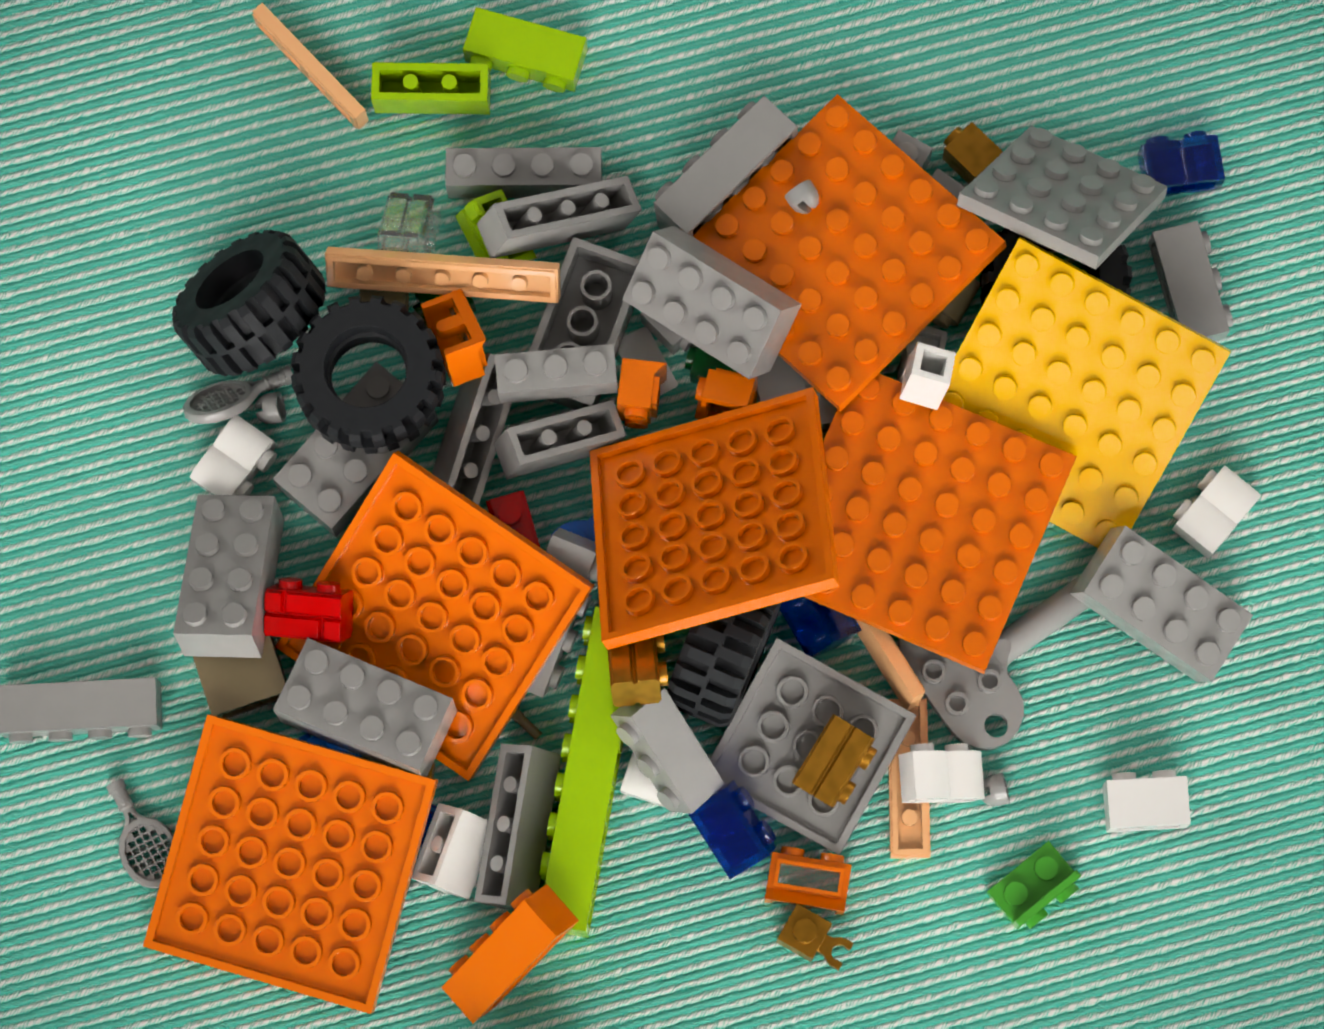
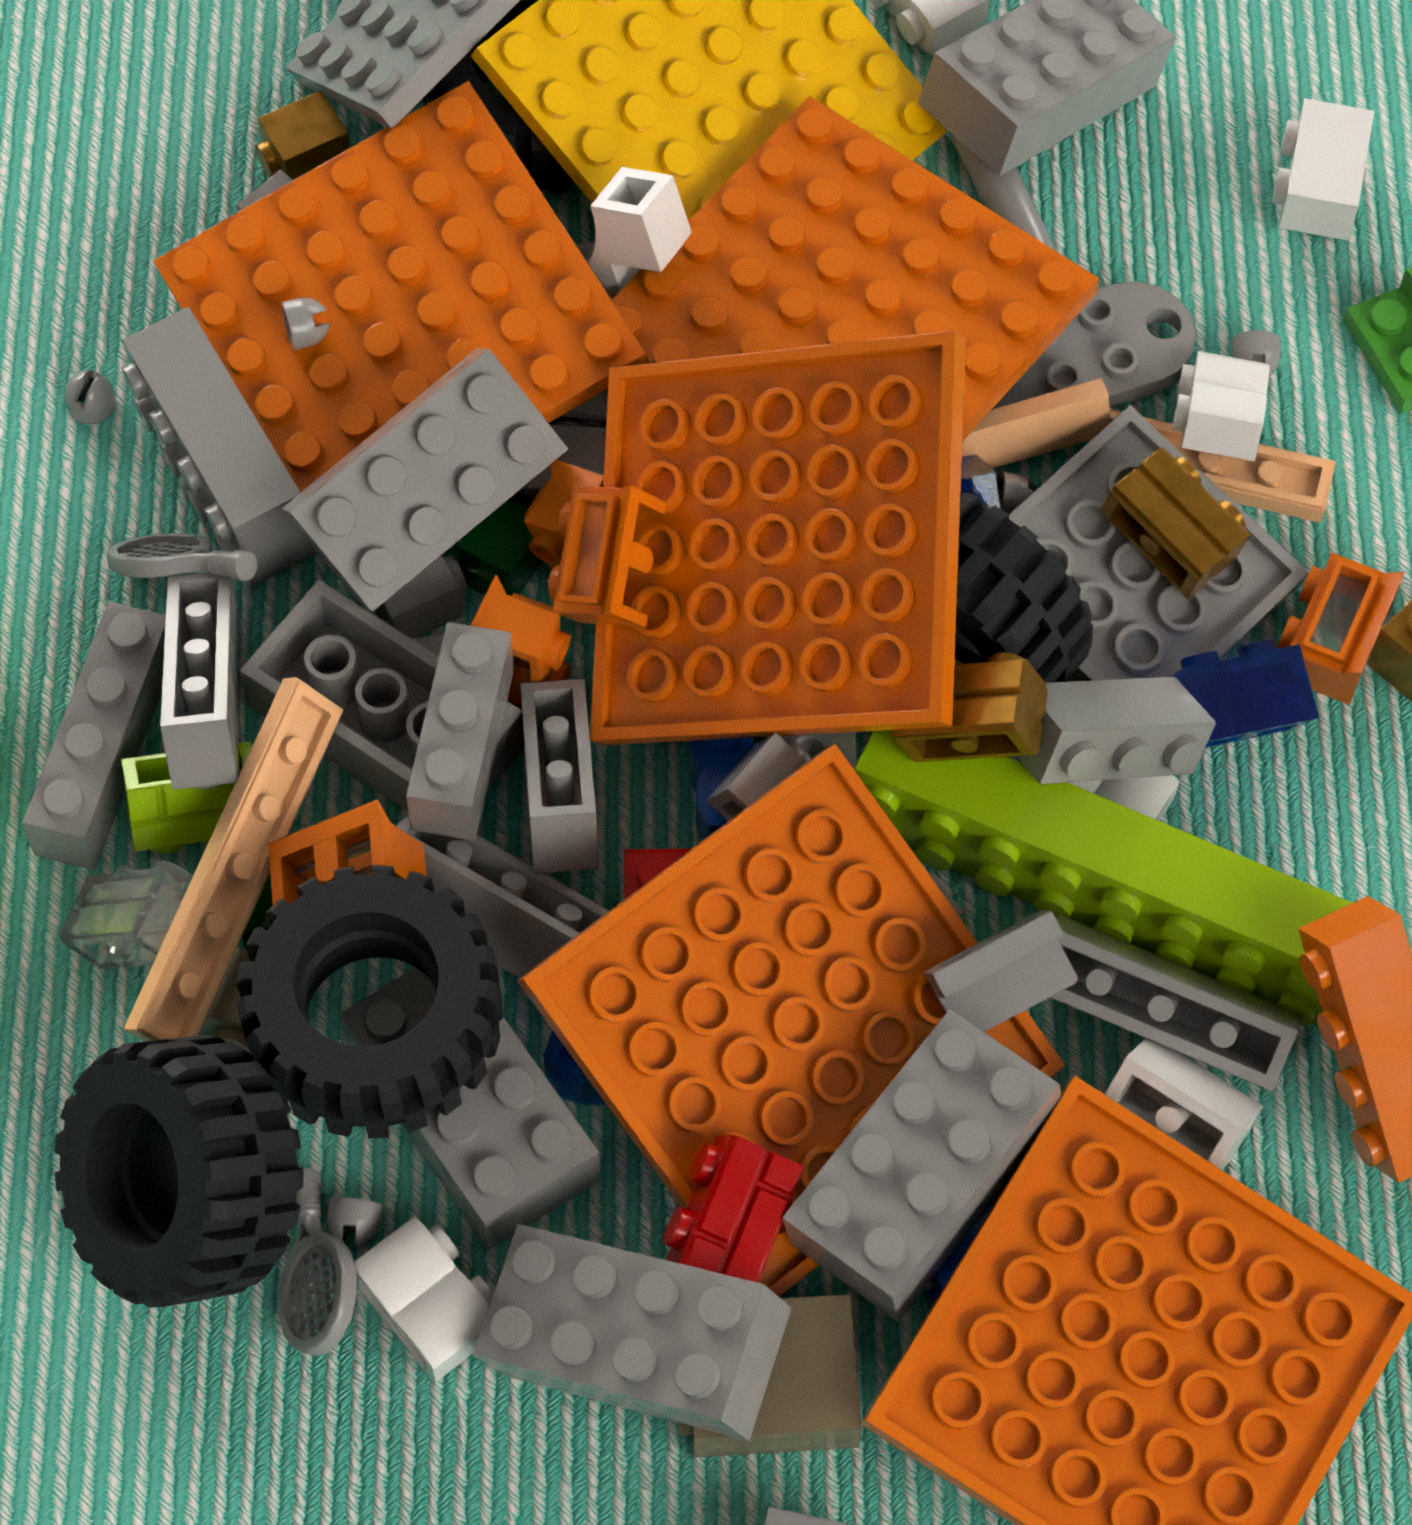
camera: 80 degrees left, 15 degrees down
(494, 724) = (1004, 972): none -> light grey panel
(642, 184) = (178, 554): none -> light grey piece
(684, 417) = (600, 553): none -> orange window
(752, 93) = (99, 399): none -> light grey hinge
(844, 661) = (1013, 490): none -> light grey hinge

